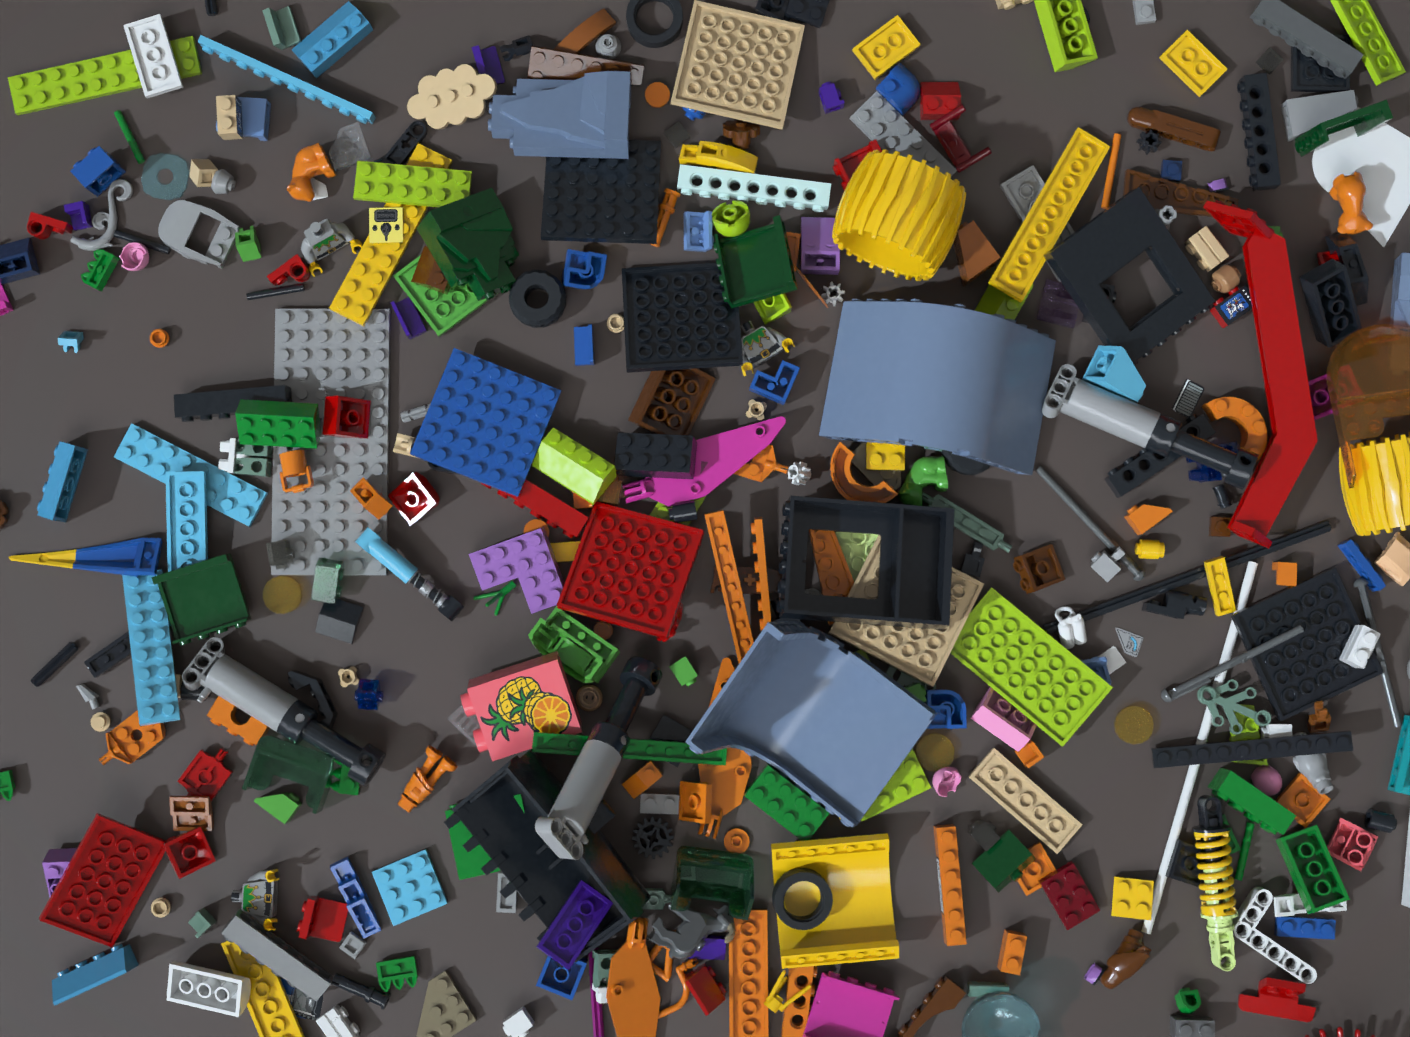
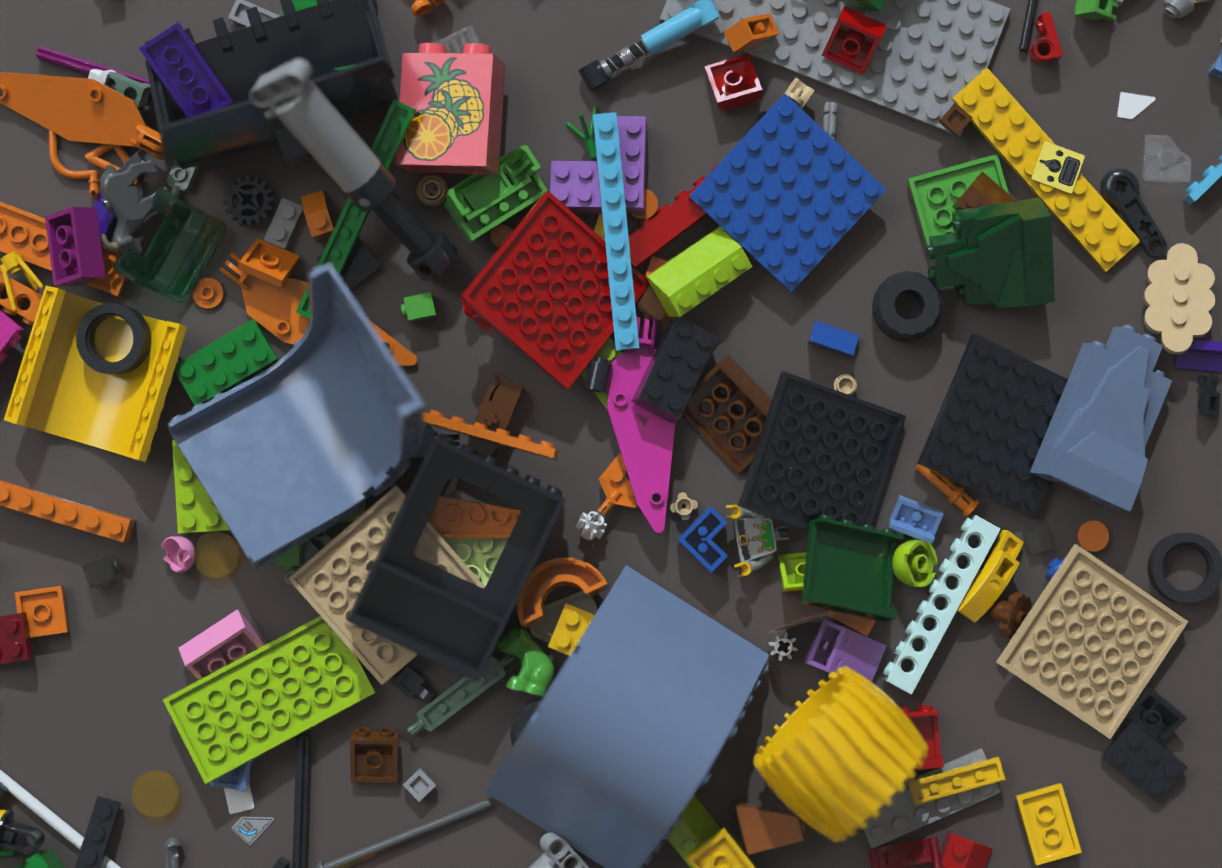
camera: 110 degrees right, 0 degrees up
(308, 163) = (1163, 108): orange animal -> none
(325, 239) = (1067, 91): light grey torso -> none
(379, 316) = (955, 119): none -> reddish brown plate
(409, 318) = (941, 153): dark purple panel -> none
(410, 184) = (1094, 213): lime plate -> none
(561, 980) = (133, 35): blue brick -> none
(566, 65) = (1165, 445): wing -> none
(567, 541) = (616, 230): none -> medium azure plate
(583, 269) = (920, 371): blue brick -> none
(586, 32) = (1193, 473): dark orange slope -> none
(608, 51) = (1165, 500): light grey cone -> none
(705, 988) = (59, 192): red slope -> none
(729, 582) = (497, 396): orange plate -> none
(743, 957) = (75, 246): none -> magenta brick
(830, 97) = (1013, 734): dark purple brick -> none
(881, 124) = (956, 781): none -> yellow tile
(900, 89) = (992, 820): blue brick -> none
(950, 709) = (258, 587): blue brick -> none
(1004, 861) = (62, 582): dark green container -> none
(1025, 800) = (121, 634): tan plate -> none
(1029, 754) = (169, 659): orange panel -> none
(1046, 526) = (419, 784): none -> light grey plate
(1071, 629) = (291, 764): white piece -> none
(1106, 564) = (348, 835): light grey brick -> none

